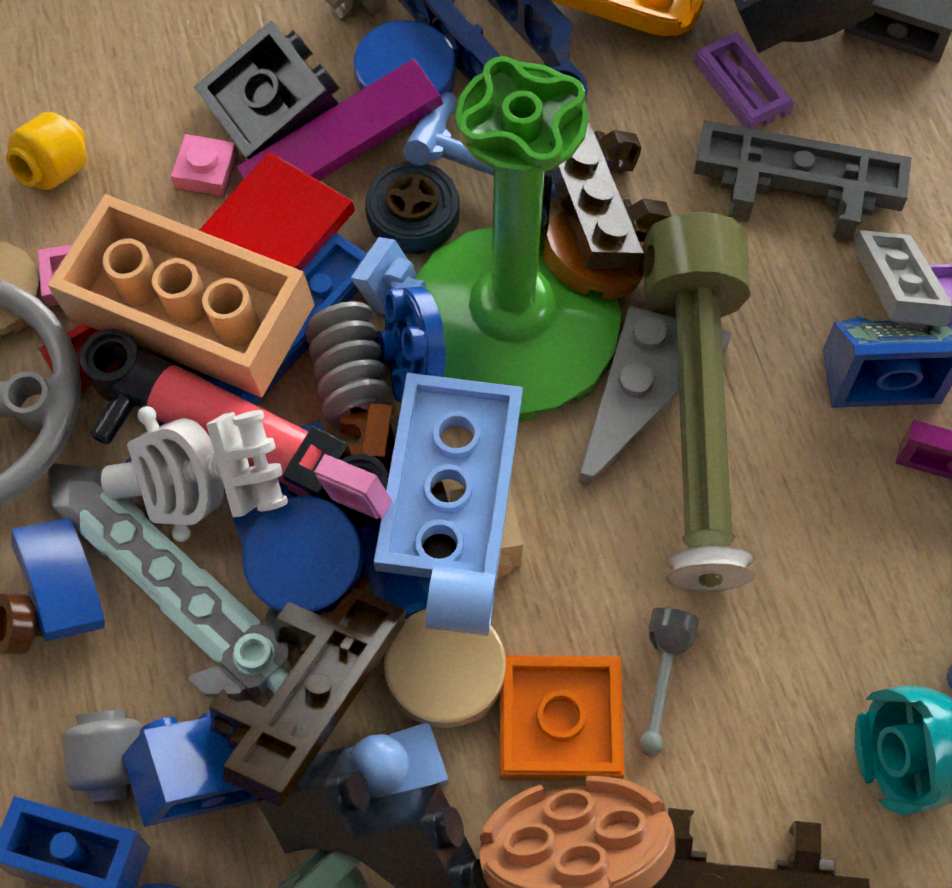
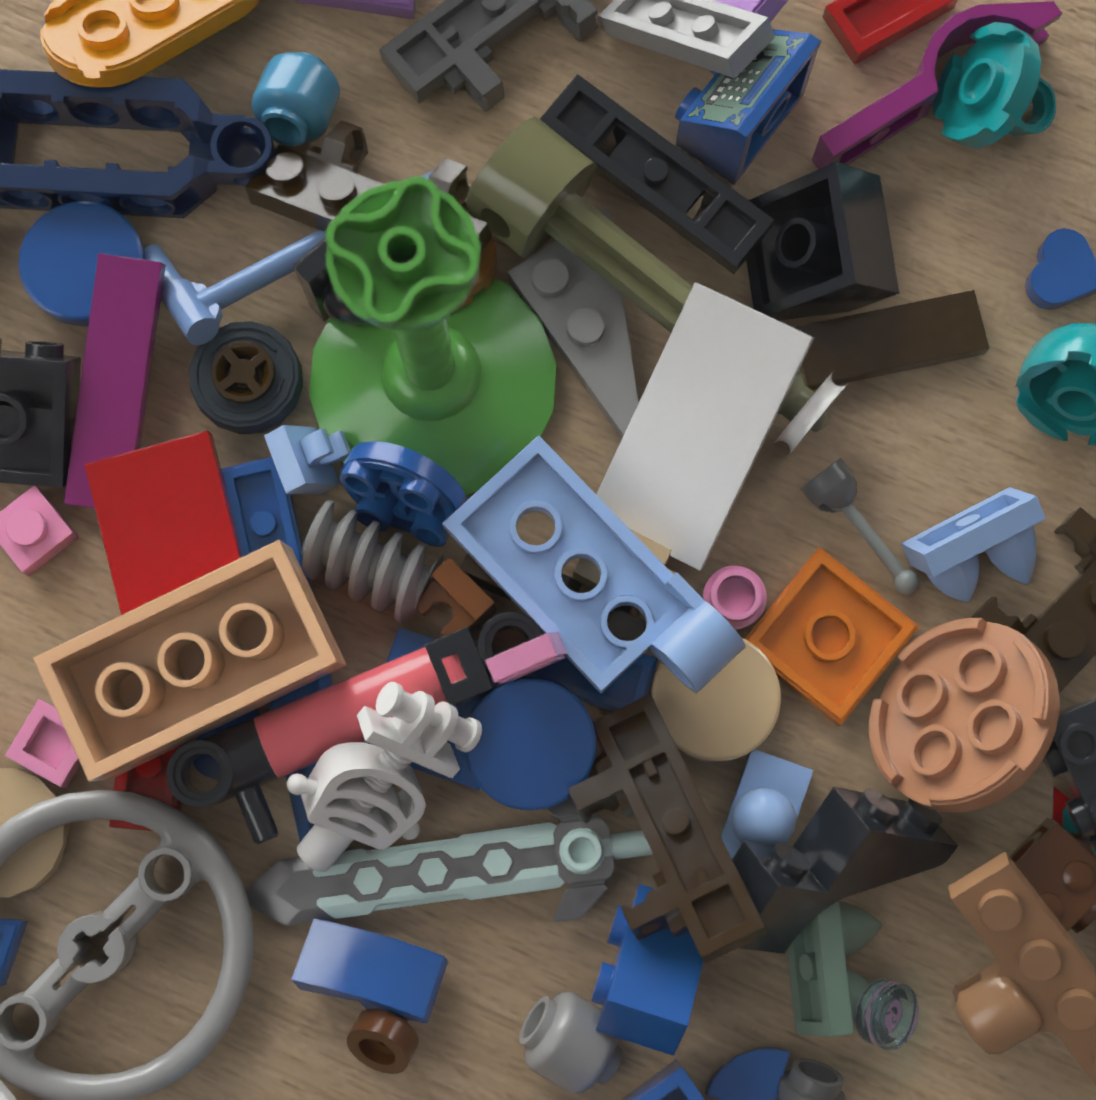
camera: 50 degrees left, 15 degrees up
(531, 626) = (736, 595): none -> bright pink plate
(625, 98) = (295, 98): none -> dark azure head
(631, 497) = (702, 423): none -> white tile
(750, 780) = (996, 525): none -> light blue tile
(784, 343) = (658, 174): none -> black hinge
(823, 594) = (894, 339): none -> dark brown tile
(841, 487) = (824, 247): none -> black slope

